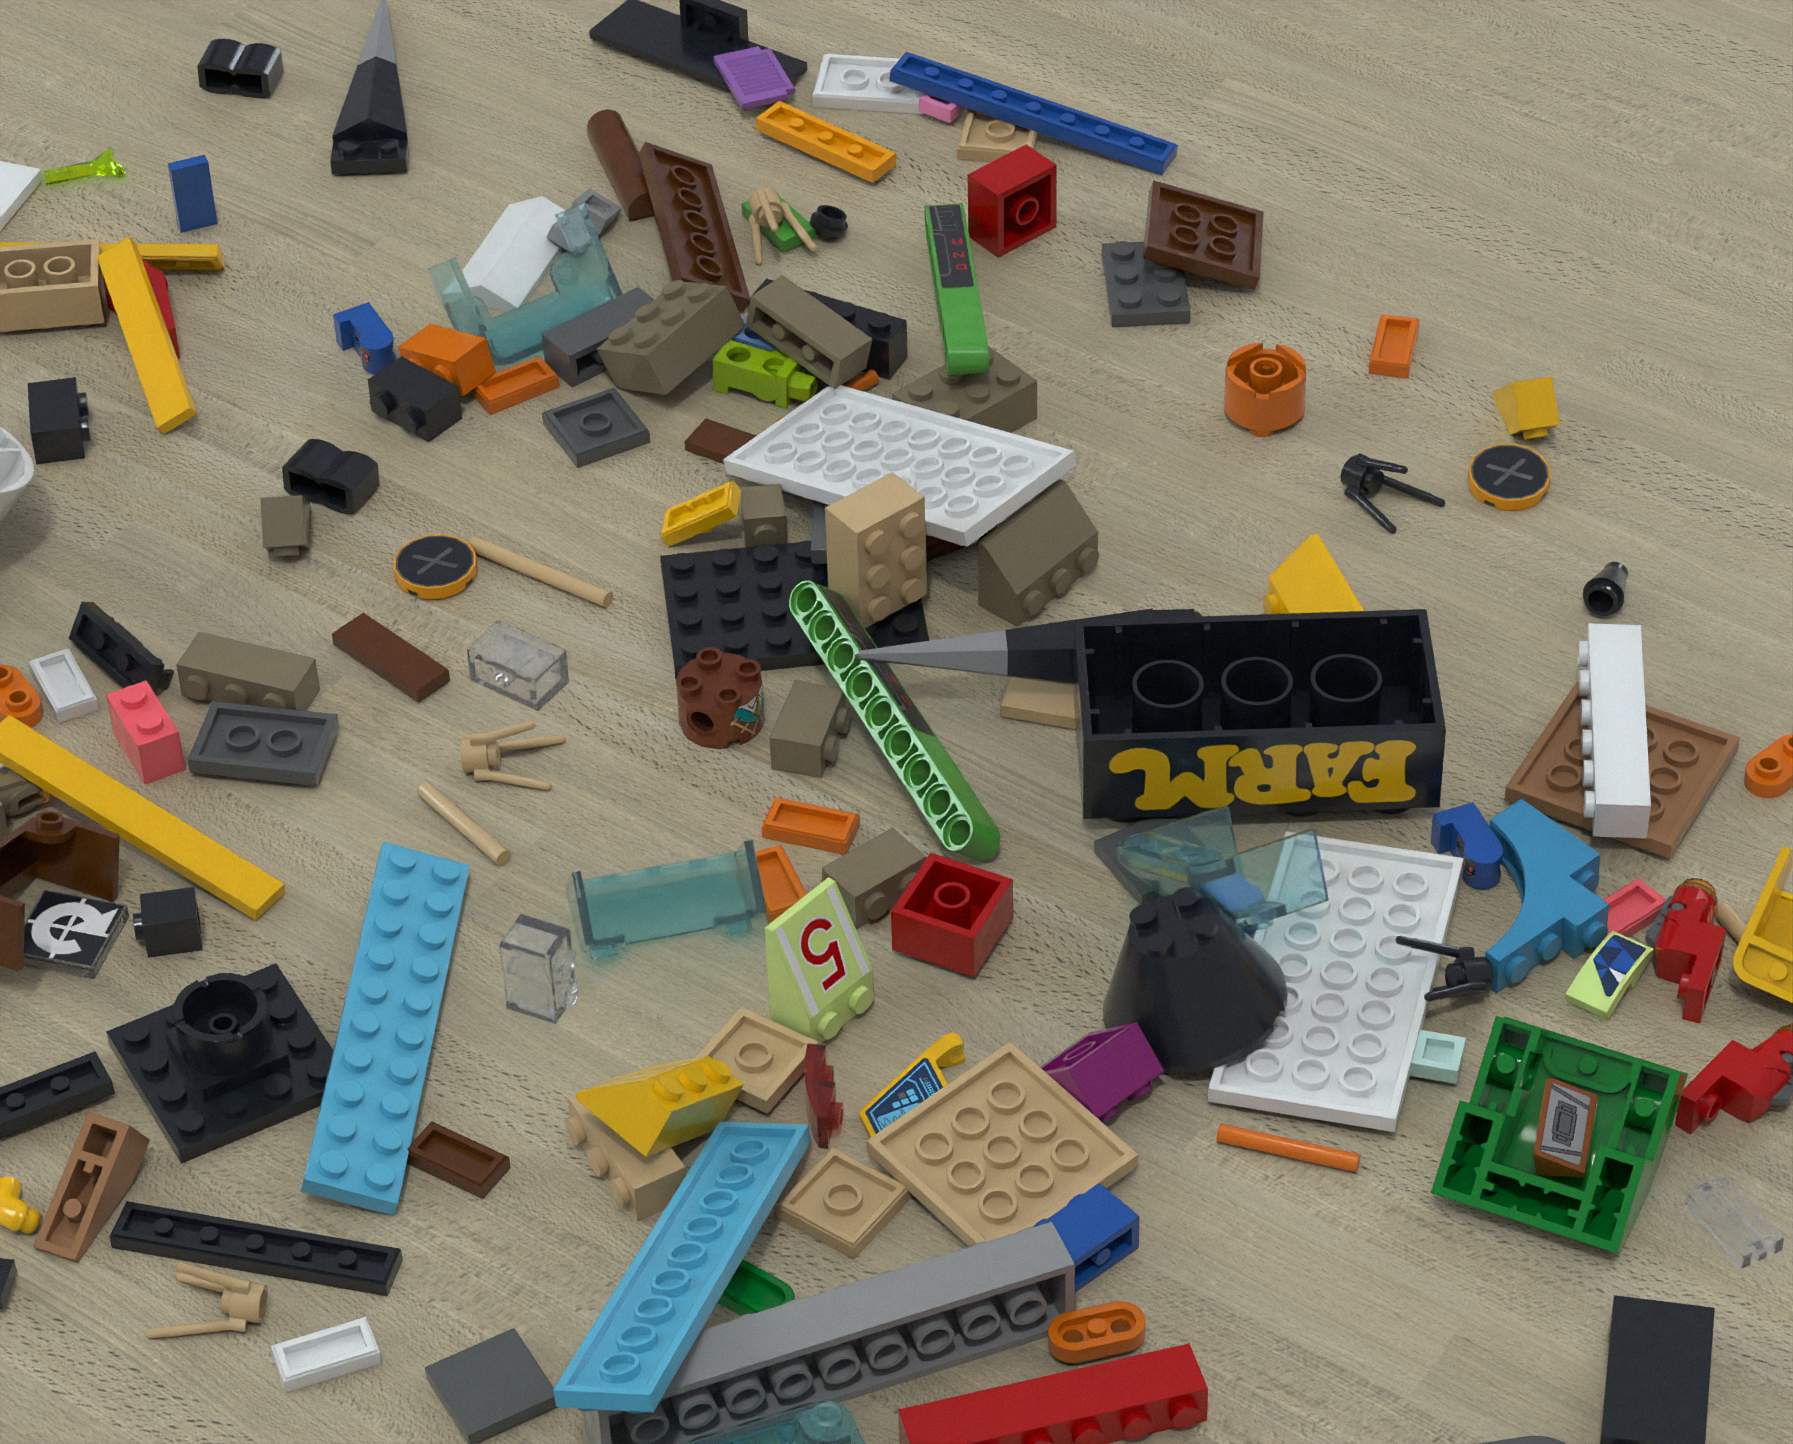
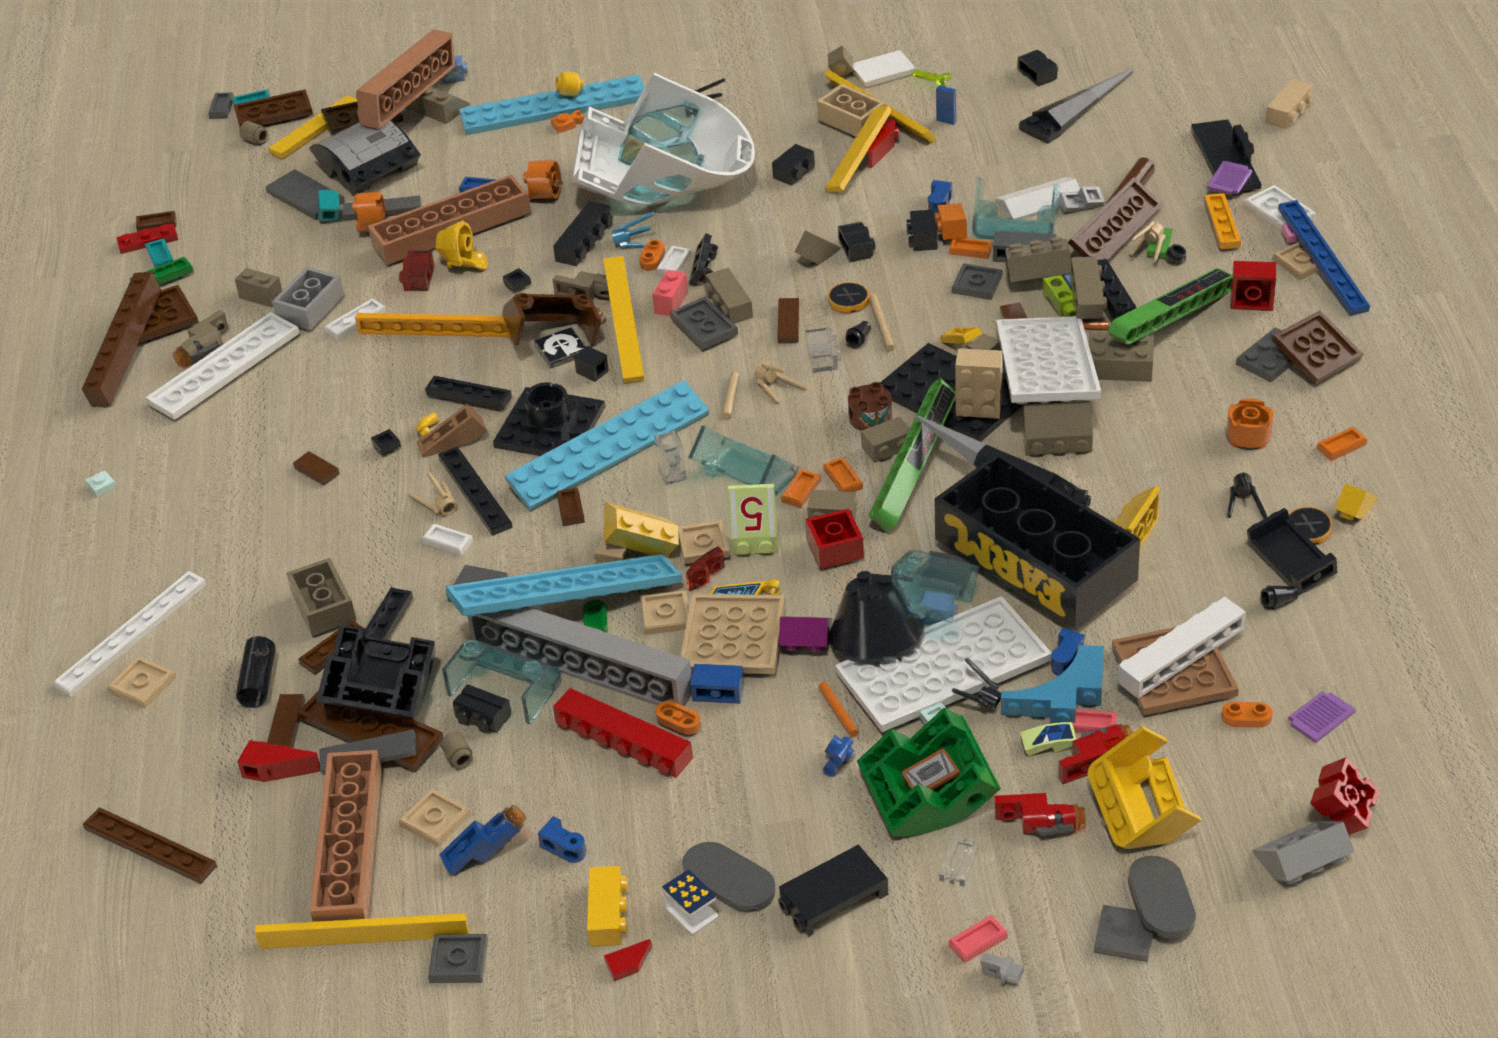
camera: 50 degrees right, 0 degrees up
(537, 609) = (857, 334): none -> black cone
(1392, 1204) = (839, 751): none -> blue plate
(1546, 523) = (1290, 552): none -> black panel

